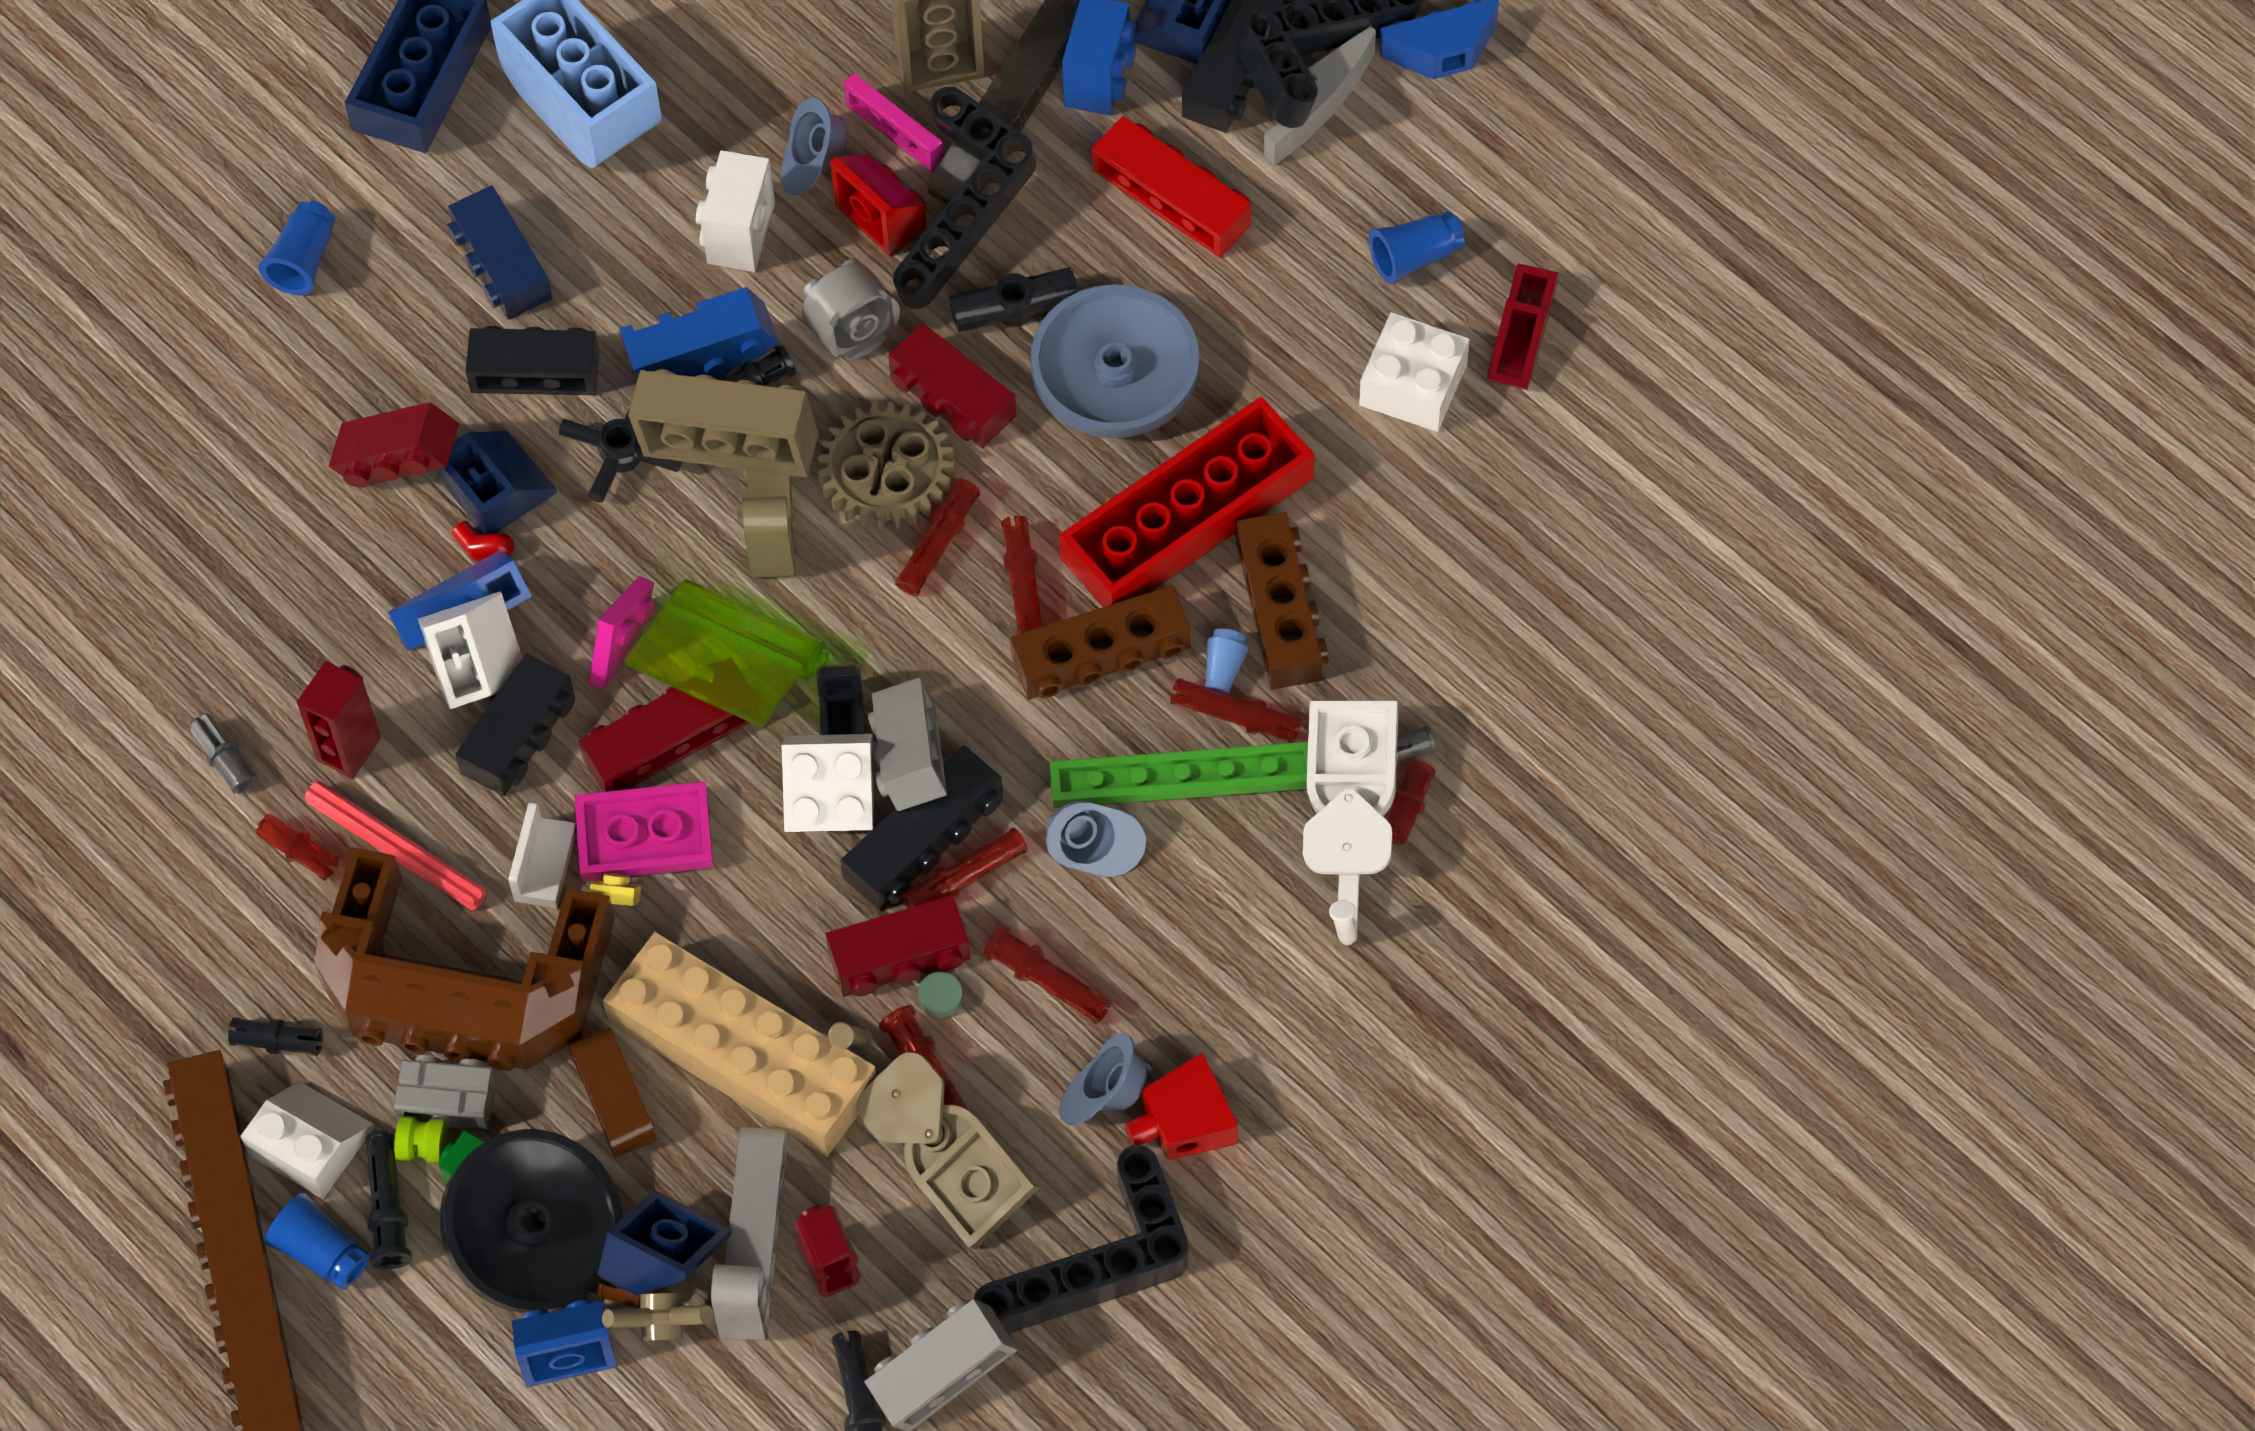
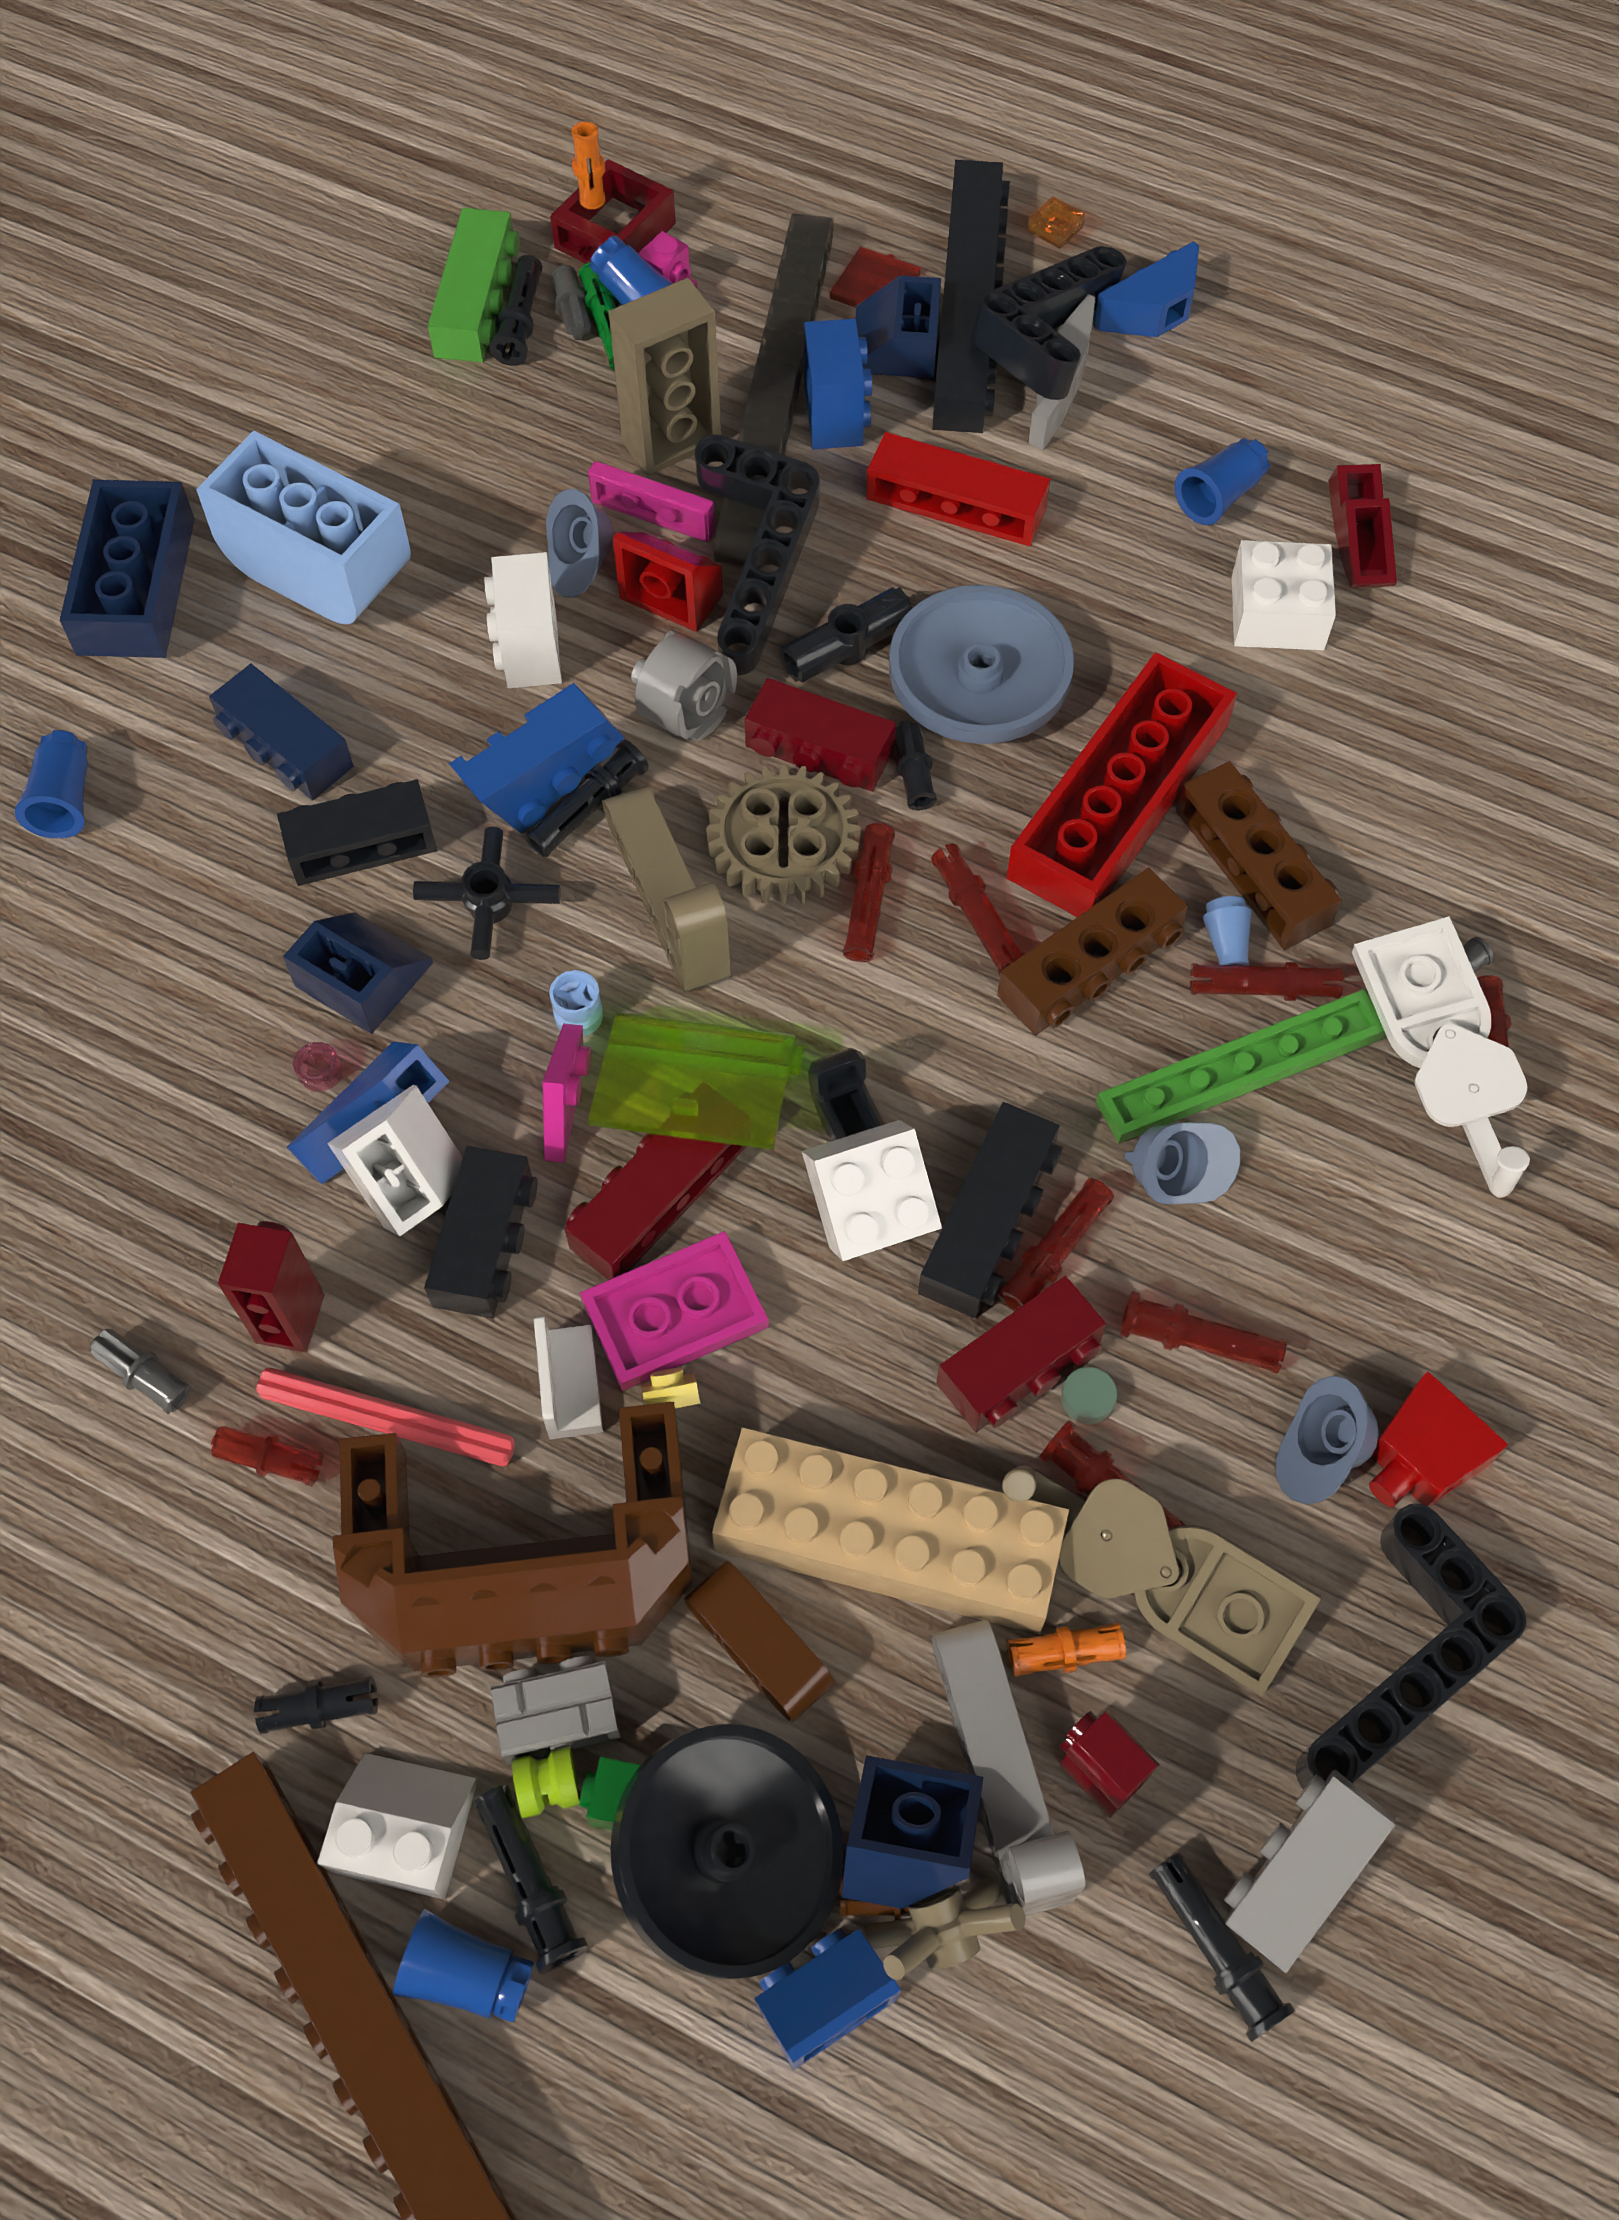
camera: 20 degrees left, 0 degrees up
(393, 445) = (233, 957): dark red brick -> none
(437, 565) = (326, 1078): none -> clear pink bush
(483, 545) = (369, 1043): red arm -> none
(659, 561) = (571, 993): none -> light blue wheel
(723, 423) = (602, 829): dark tan brick -> none
(839, 1170) = (1066, 1649): none -> orange pin
(907, 745) = (945, 1121): light grey brick -> none
(1023, 436) = (914, 766): none -> black axle

